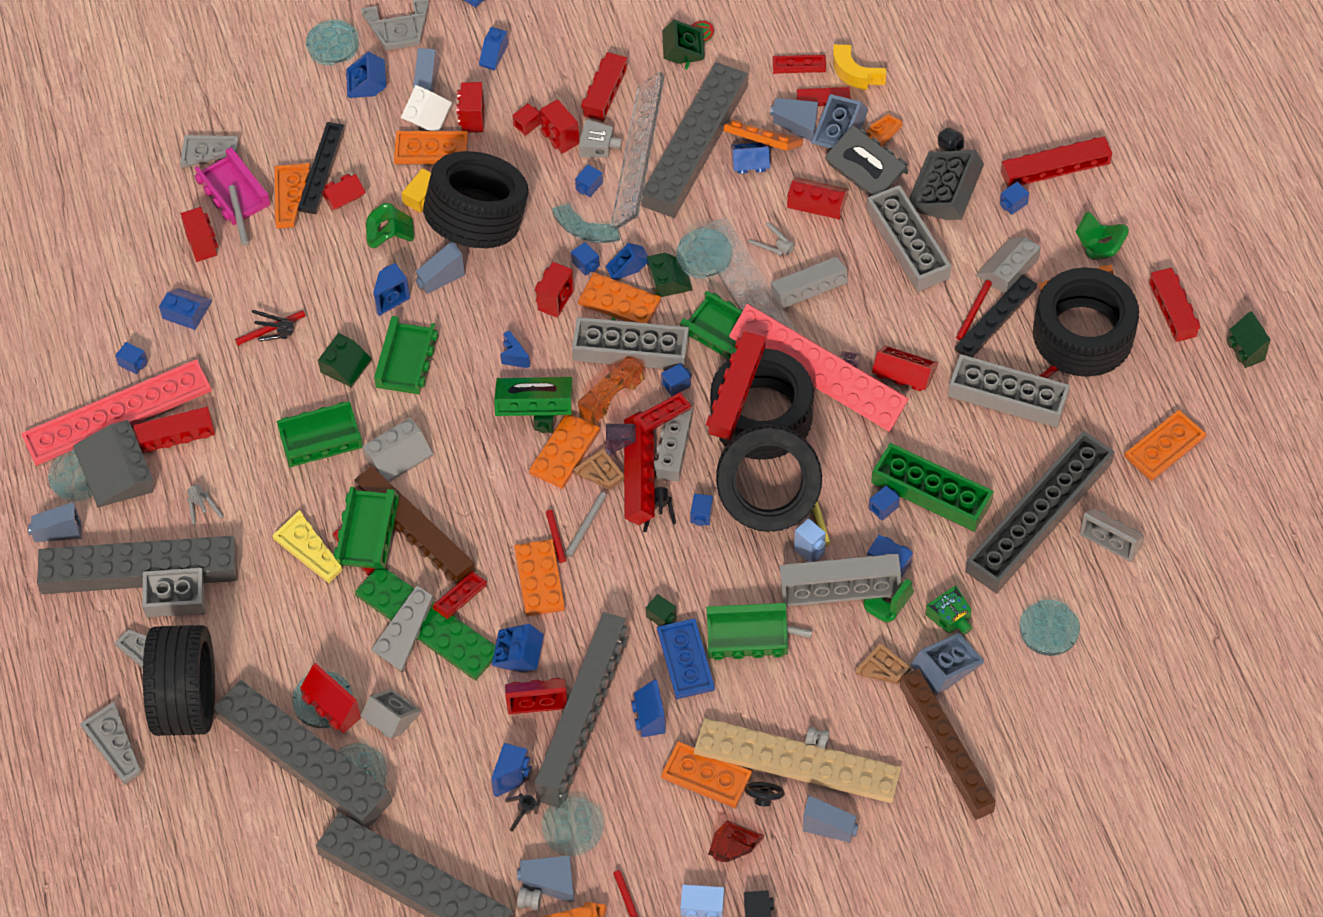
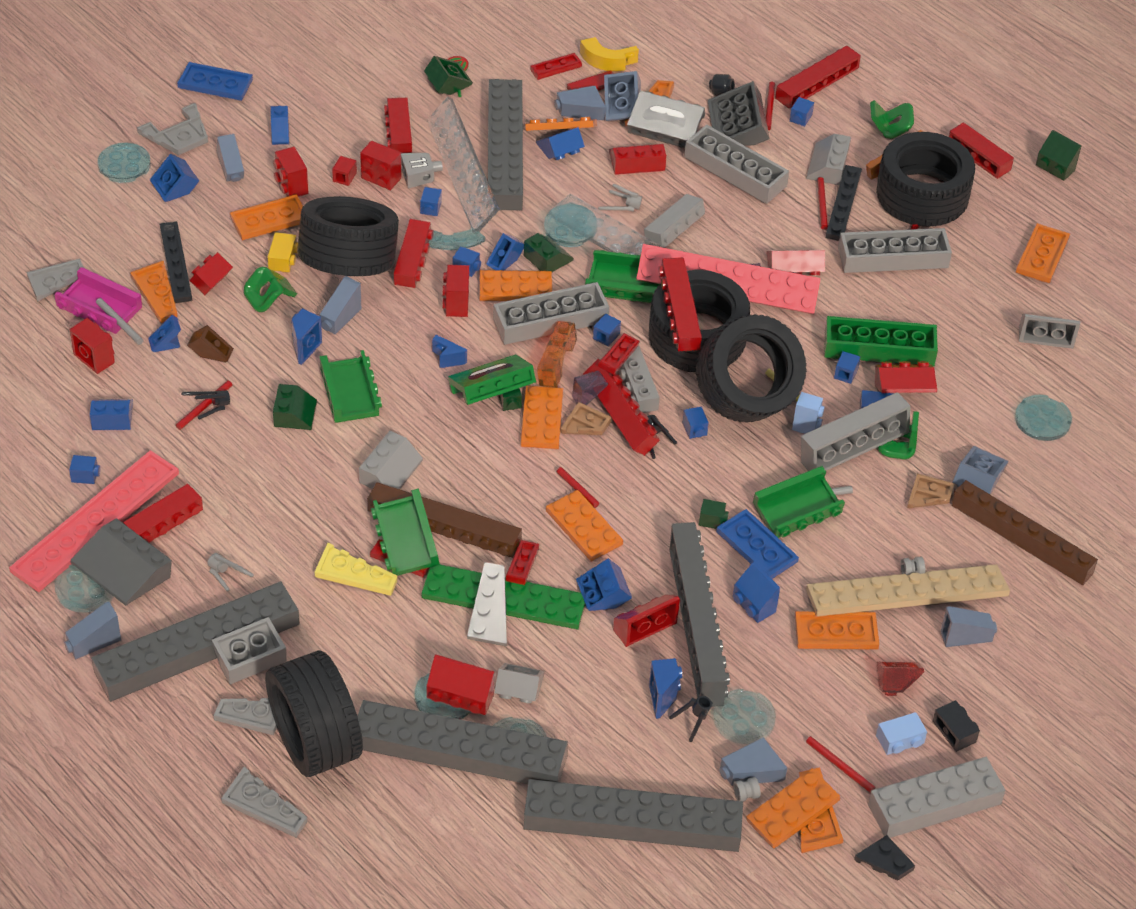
camera: 30 degrees left, 10 degrees down
(271, 245) = (166, 335): none -> blue slope
(305, 268) = (210, 345): none -> reddish brown slope
(319, 434) = (306, 475): green panel -> none
(426, 109) = (249, 186): white slope -> none
(538, 233) = (413, 253): none -> red brick
(585, 525) = (599, 469): light grey bar -> none
(762, 792) = (897, 626): black piece -> none
(929, 537) = (905, 377): none -> red slope
(950, 611) = (958, 431): green torso -> none
(981, 189) = (770, 101): none -> red piece
(1039, 512) = (980, 332): dark grey brick -> none

